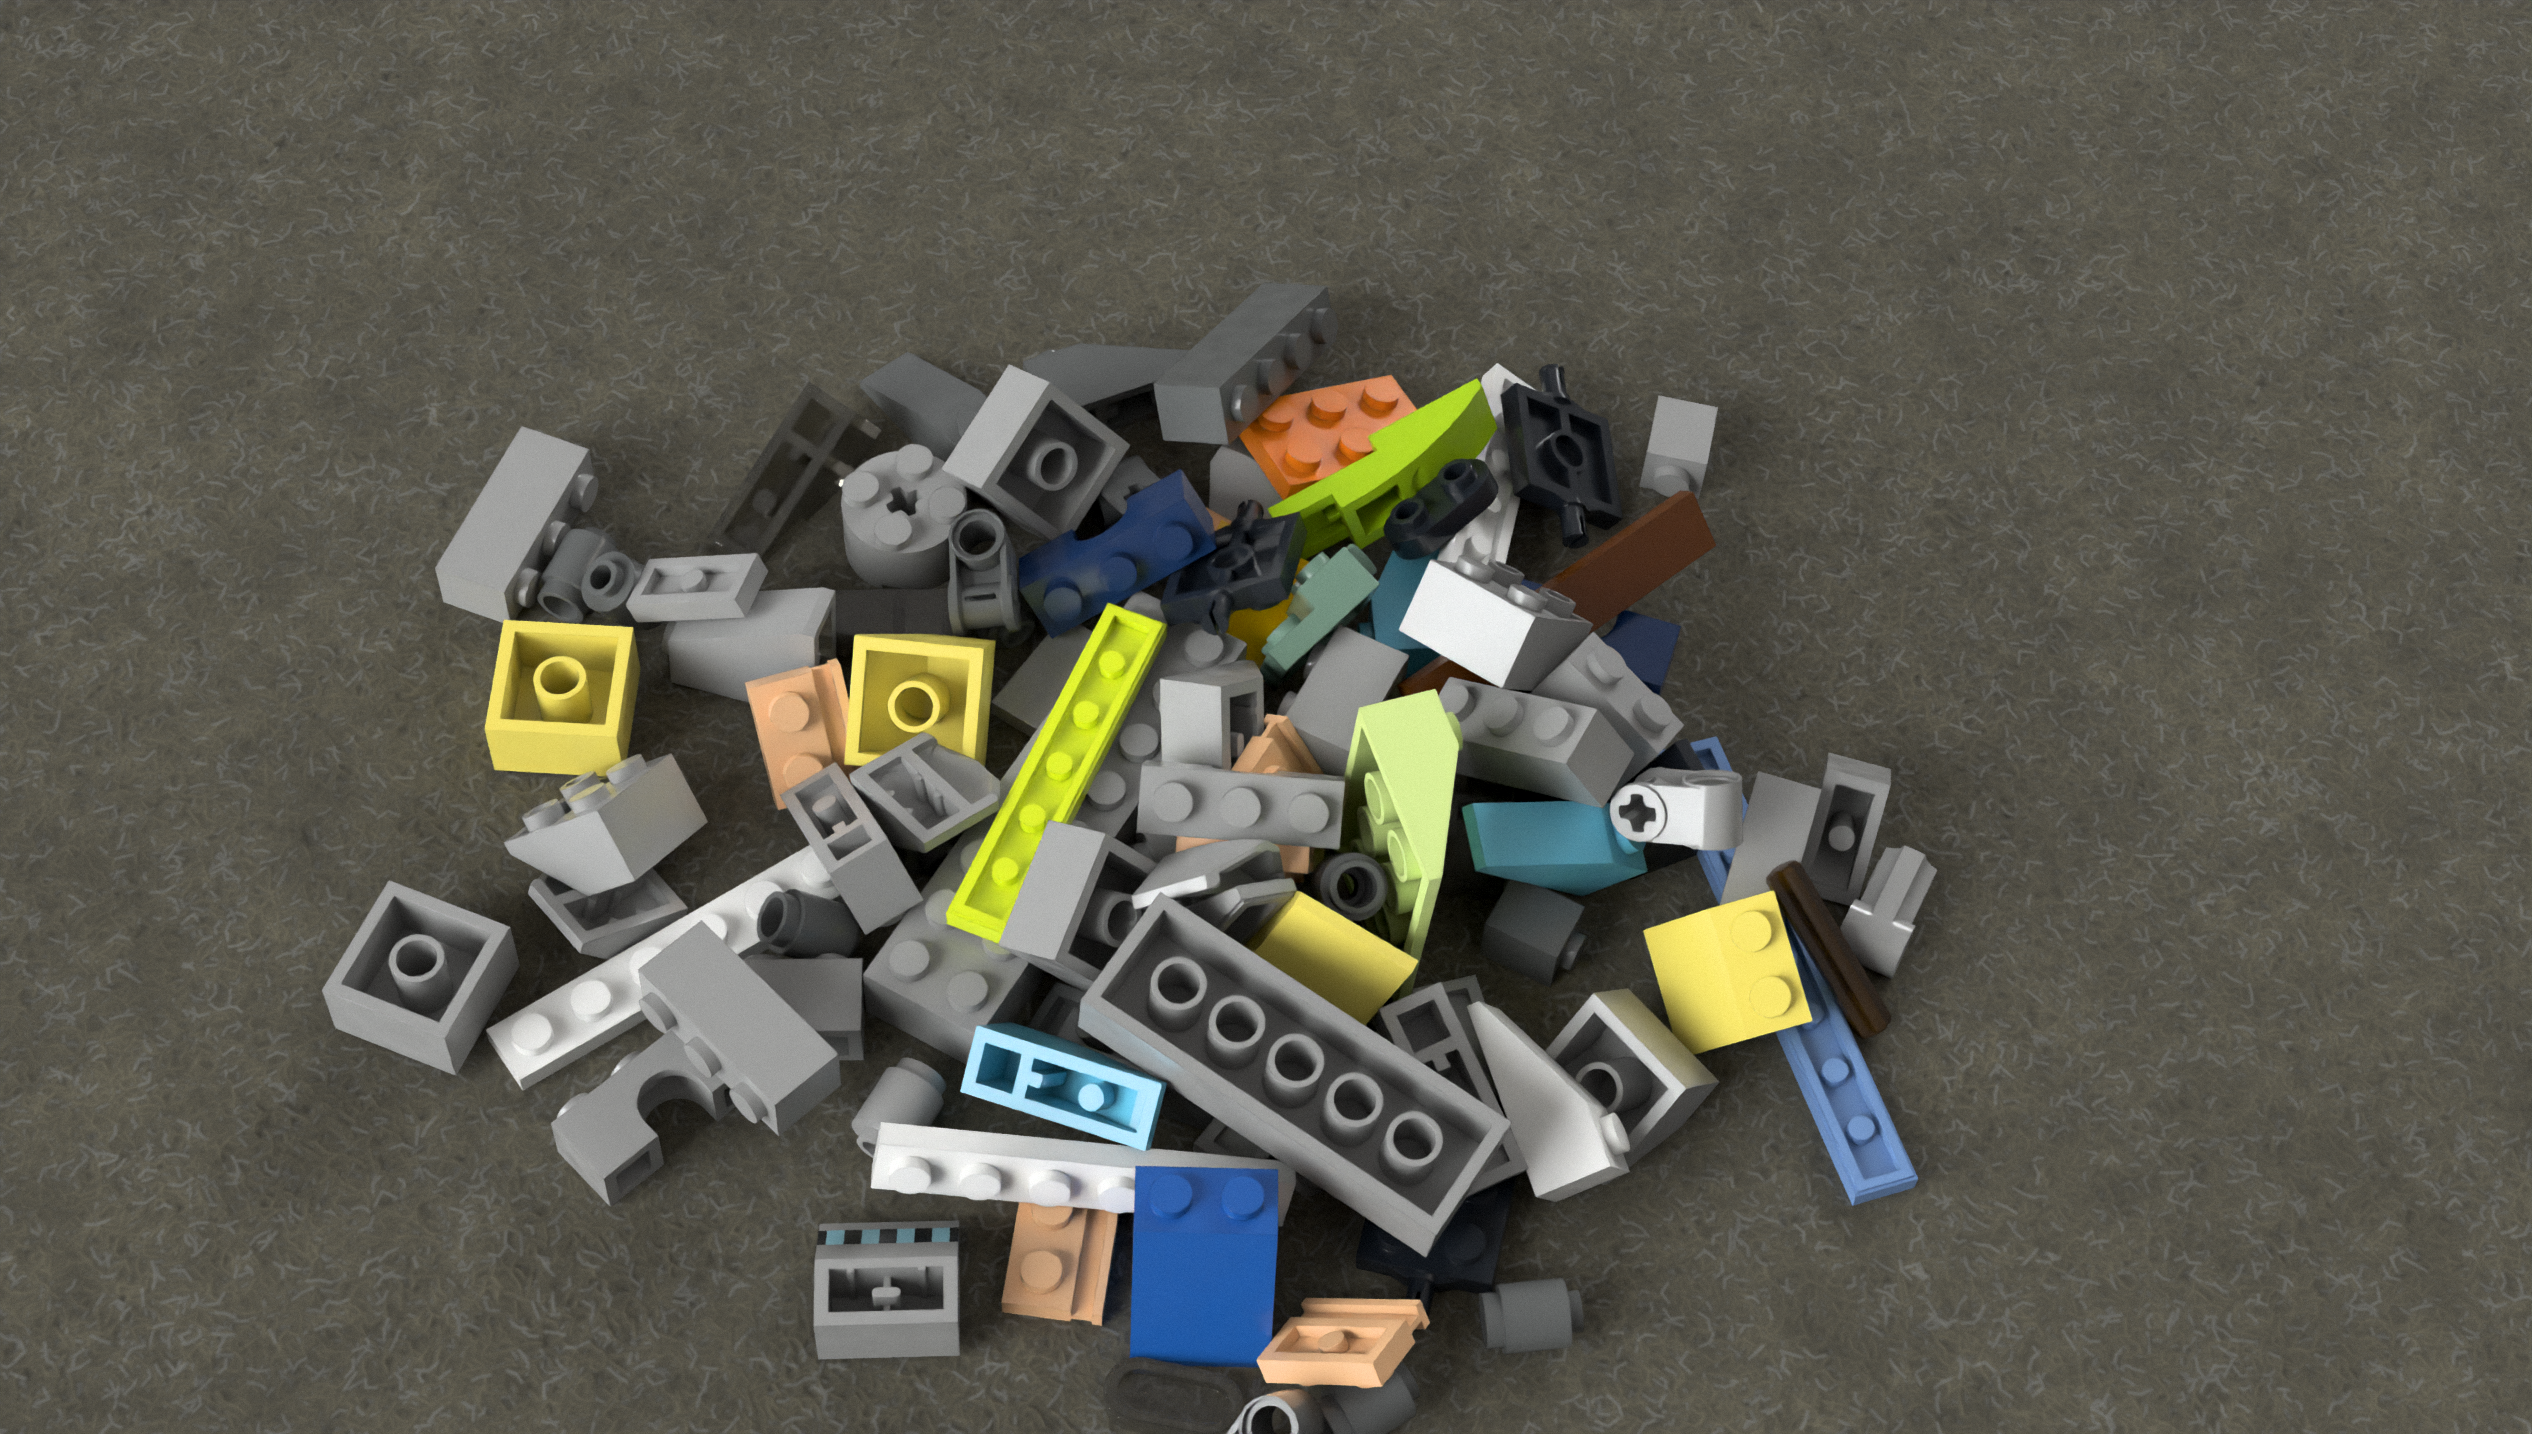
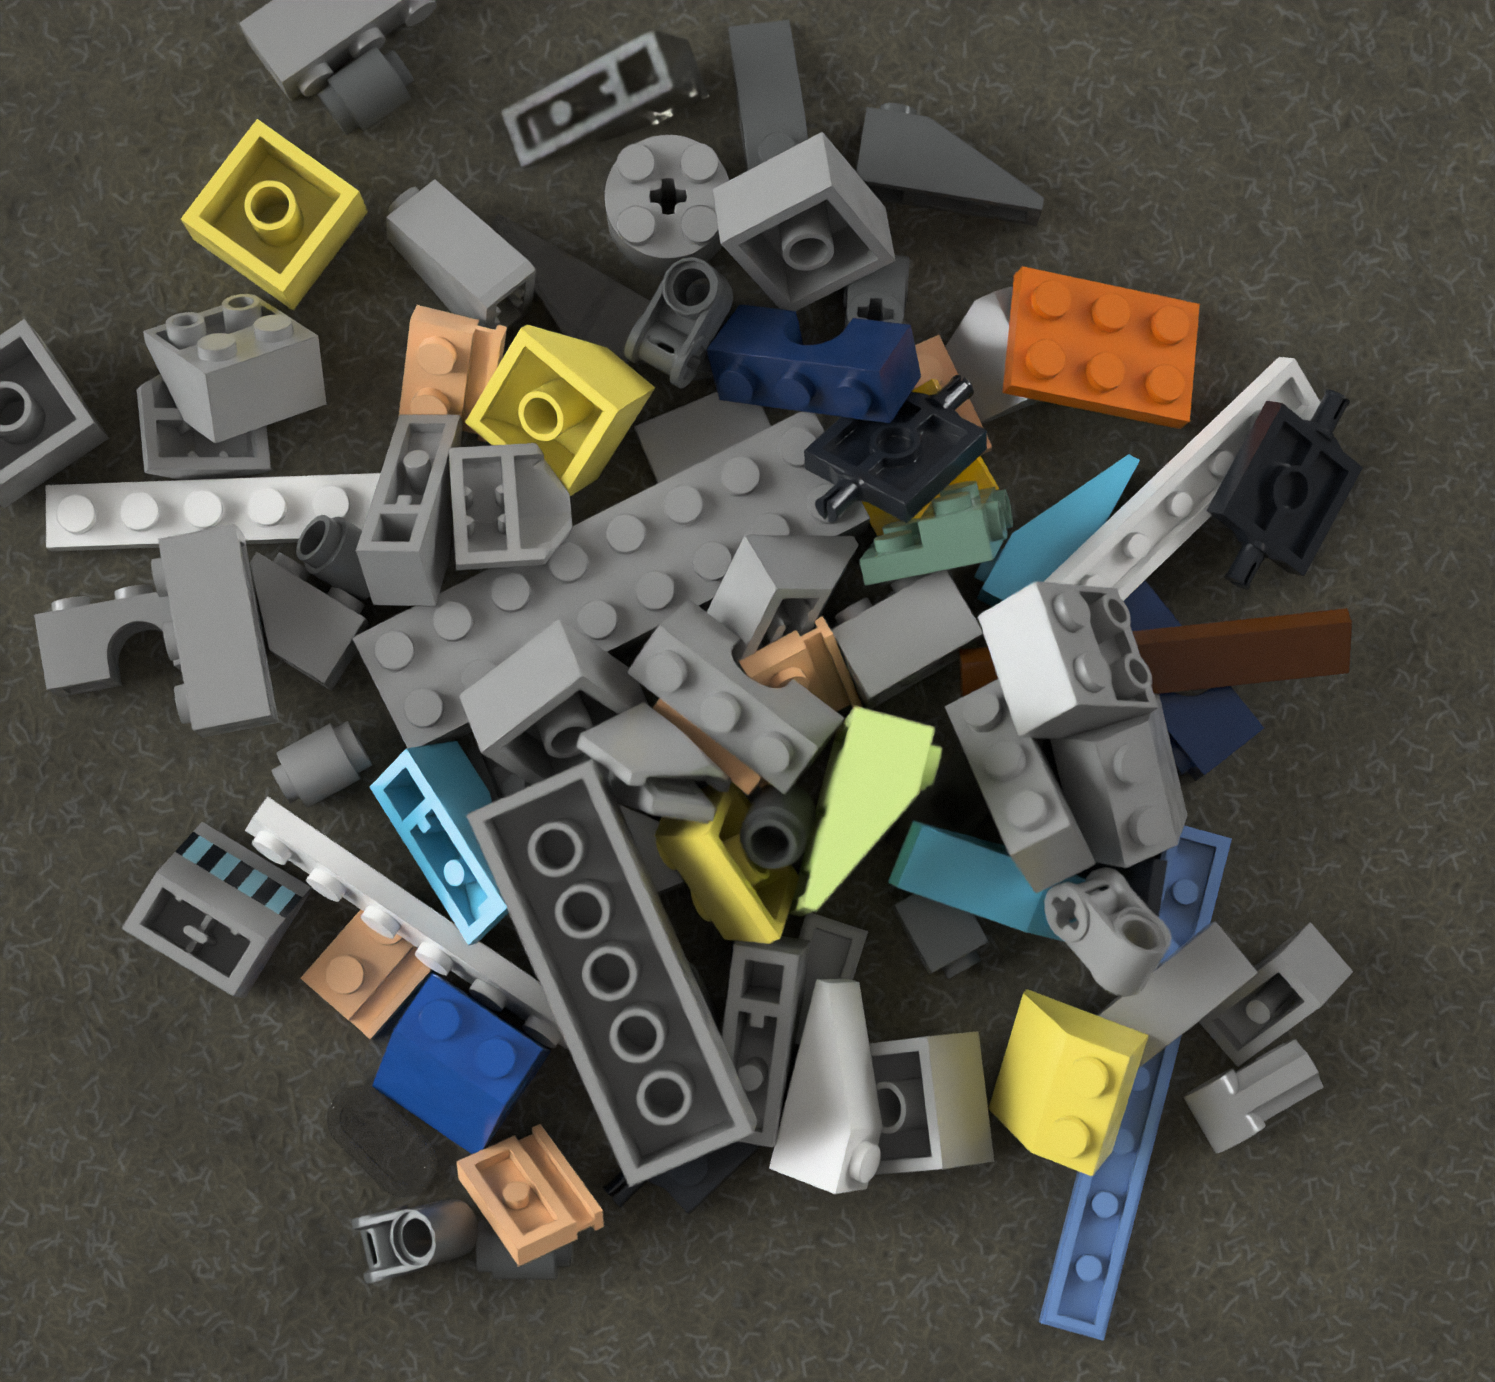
camera: 35 degrees right, 25 degrees up
(609, 585) = (388, 139): dark grey brick -> none
(697, 588) = (431, 187): light grey plate -> none
(1058, 766) = (627, 548): neon yellow tile -> none
(1245, 363) = (1056, 234): dark grey brick -> none
(1403, 461) = (1129, 433): lime slope -> none
(1440, 508) = (1122, 494): black plate -> none
(1530, 1316) = (702, 1256): dark grey brick -> none
(1678, 446) = (1402, 539): light grey brick -> none
(1828, 949) = (1166, 1108): dark brown axle -> none

